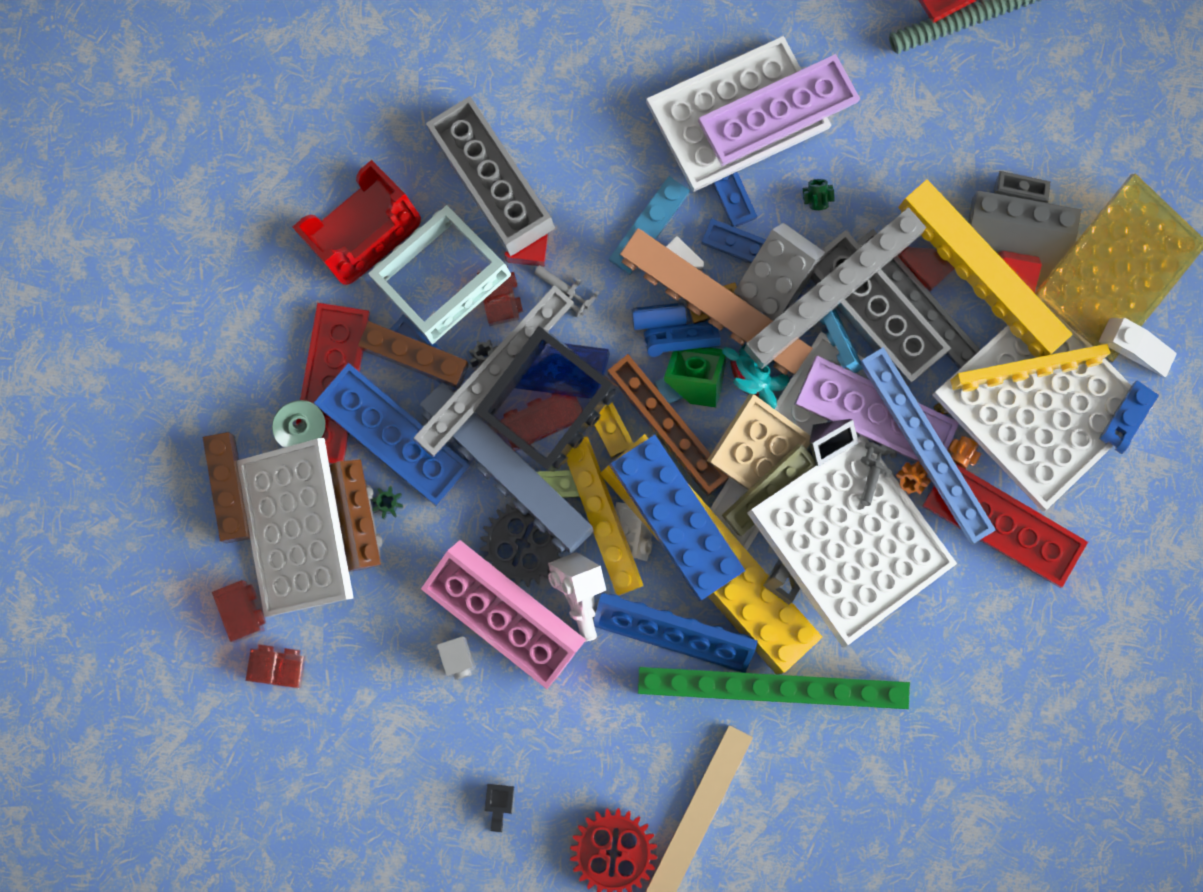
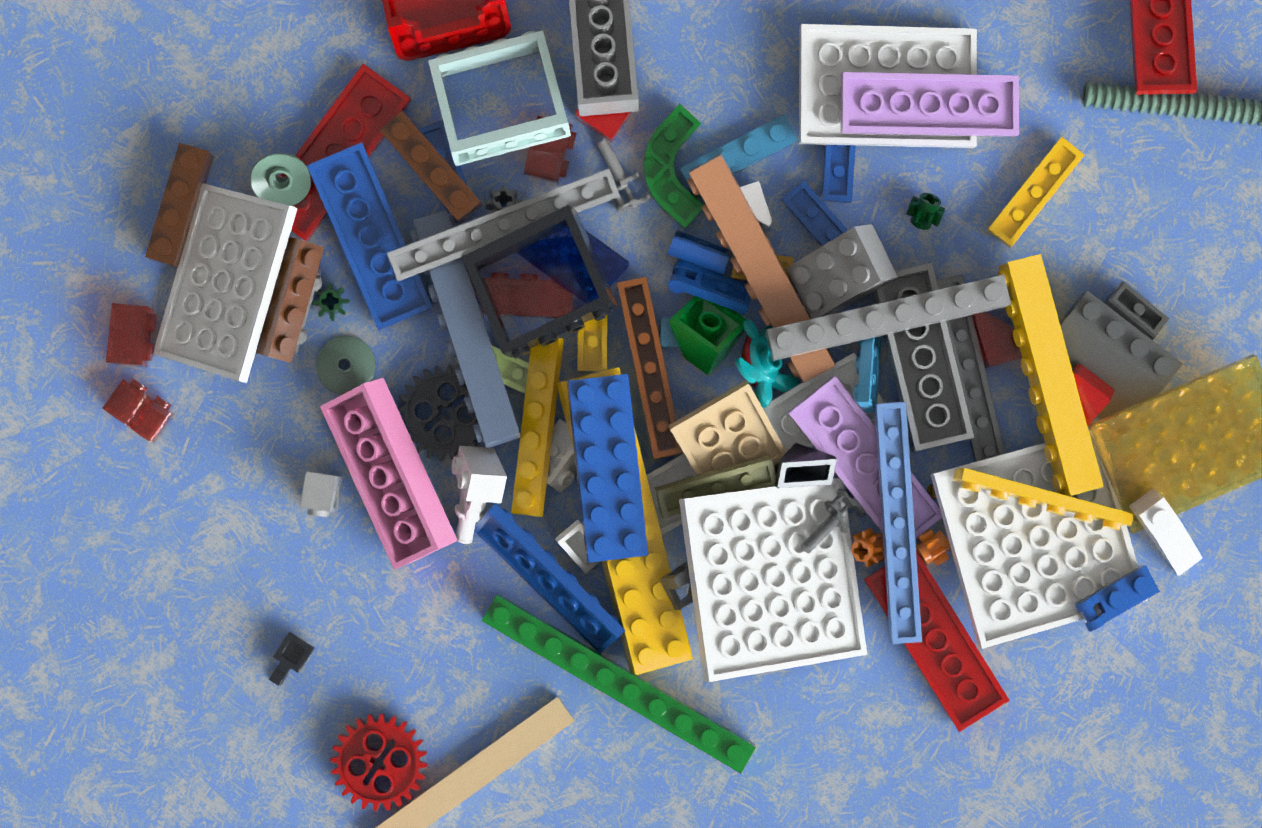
camera: 25 degrees right, 5 degrees up
(408, 544) = (361, 364): none -> sand green dish
(594, 267) = (660, 169): none -> green plate
(681, 595) = (573, 543): none -> white slope
(895, 137) = (1035, 192): none -> yellow plate

